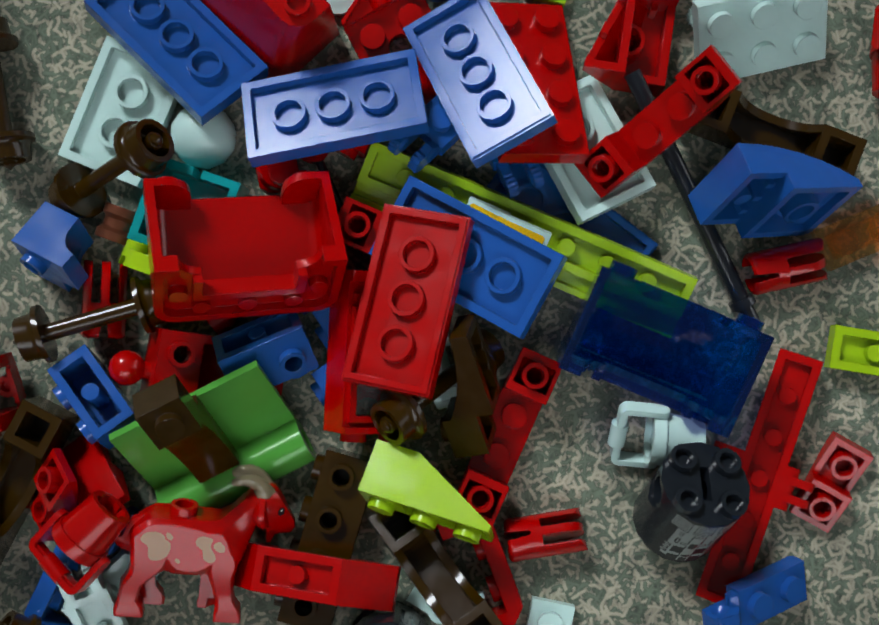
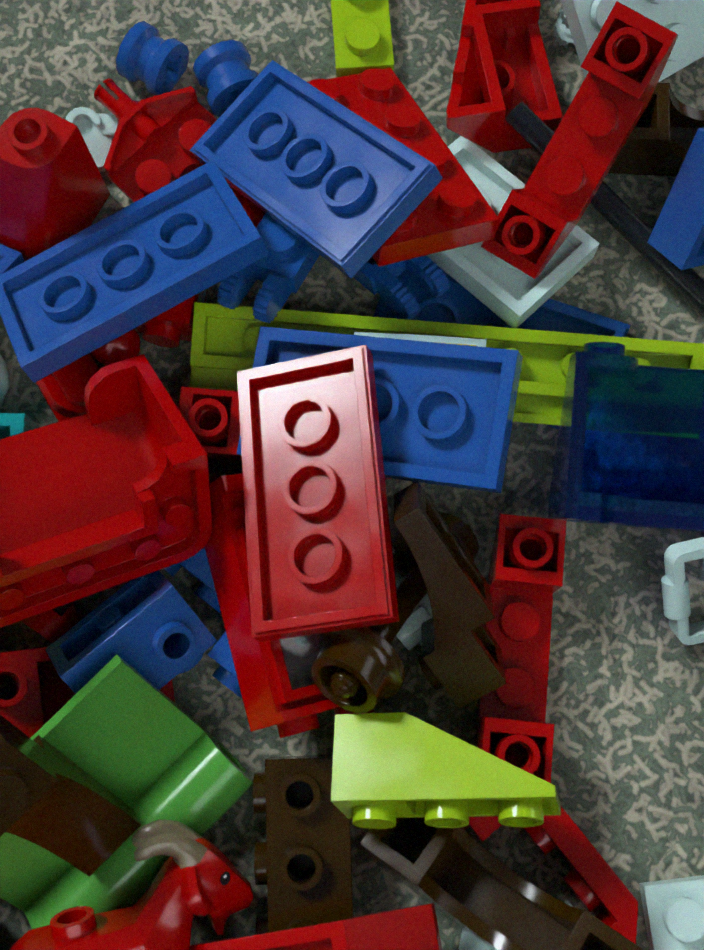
camera: 25 degrees left, 10 degrees down
(533, 545) = (616, 802): red arm -> none

